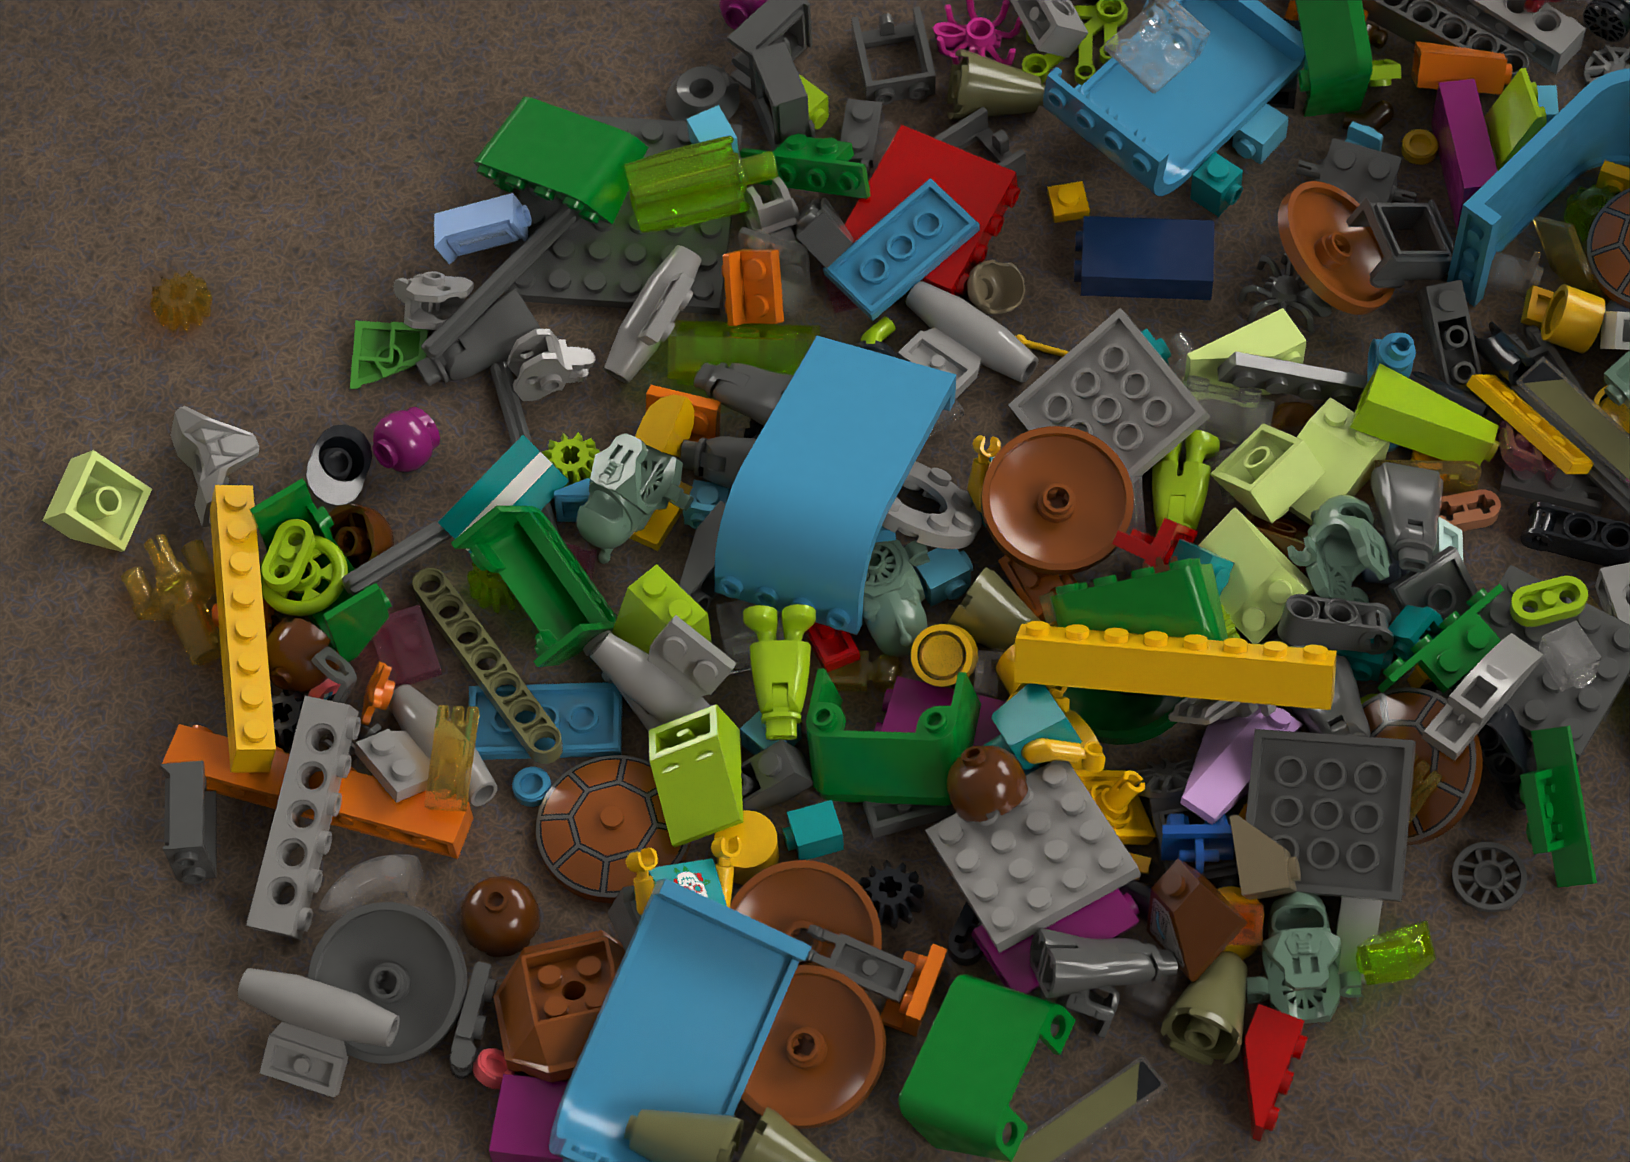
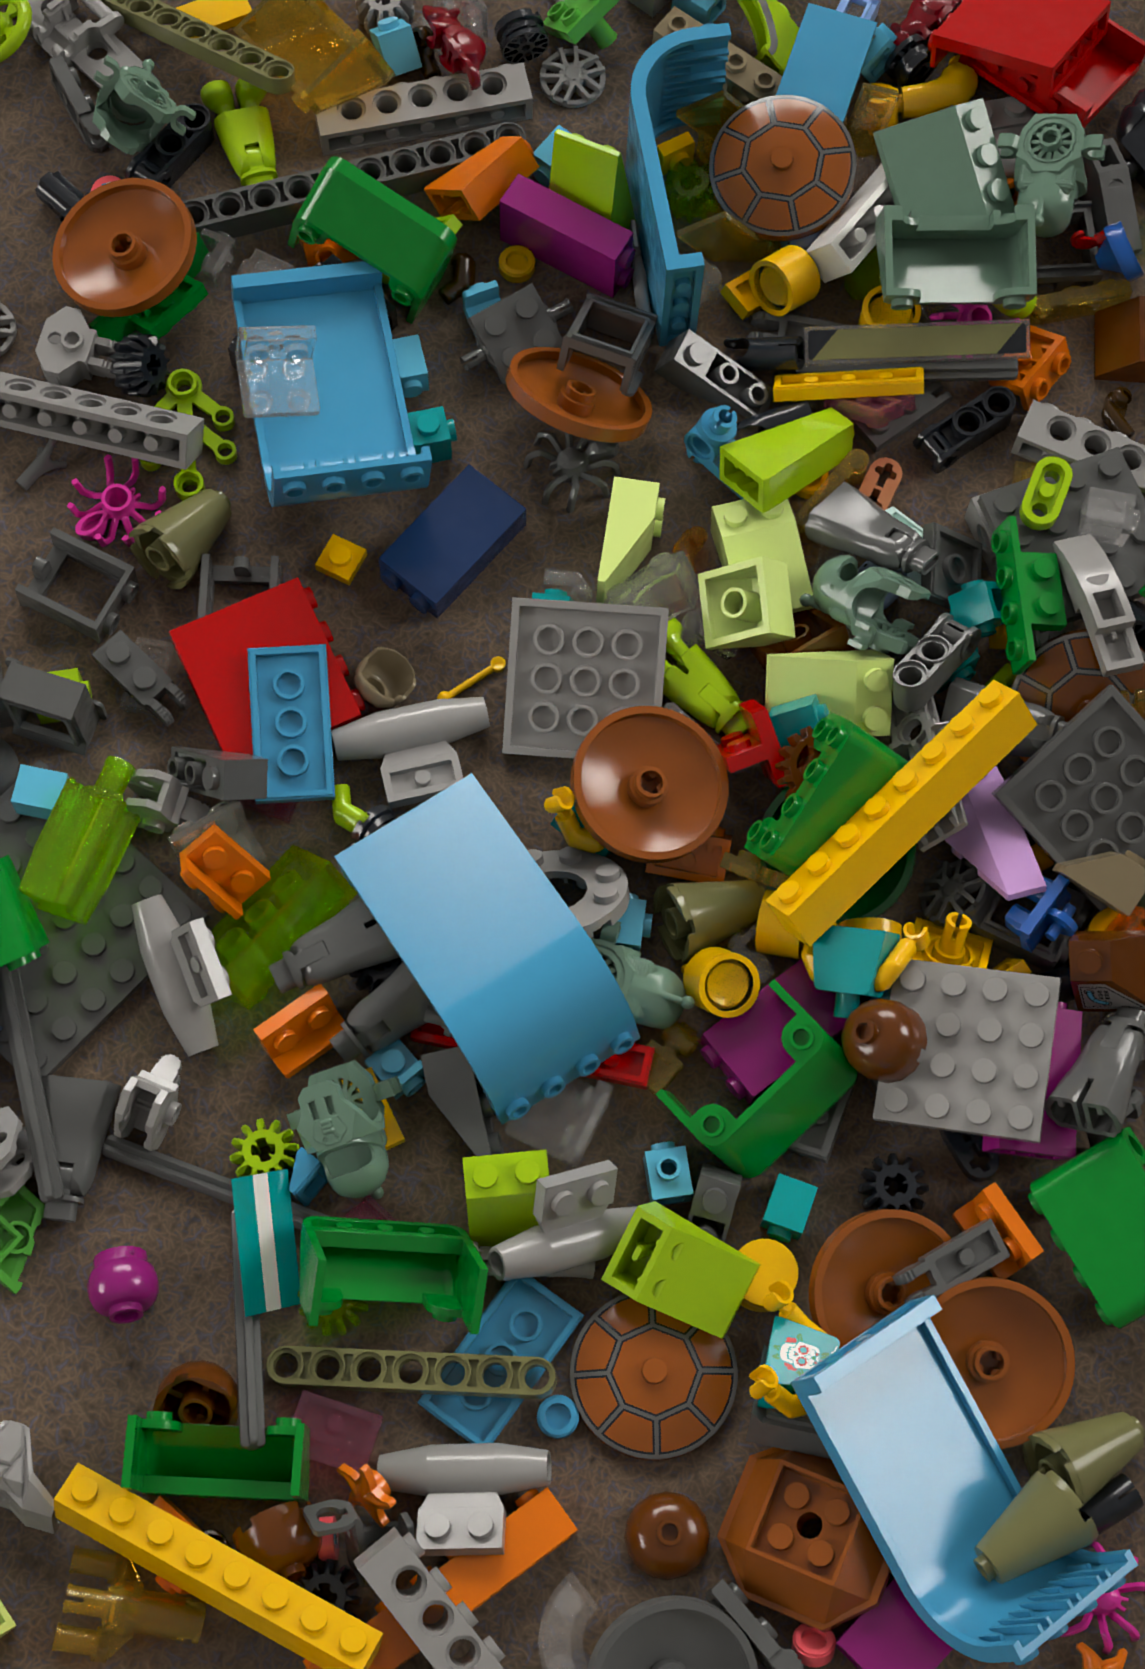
camera: 60 degrees left, 10 degrees up
(284, 556) = (181, 1480): lime plate -> none
(312, 601) = (178, 1448): lime plate -> none
(339, 465) = (101, 1363): black piece -> none
(452, 758) = (504, 1475): clear yellow hinge -> none
(667, 424) = (307, 1047): yellow brick -> none
(780, 666) = (635, 1126): lime piece -> none
(818, 166) = (143, 729): green bracket -> none
(1291, 378) = (669, 526): dark grey plate -> none

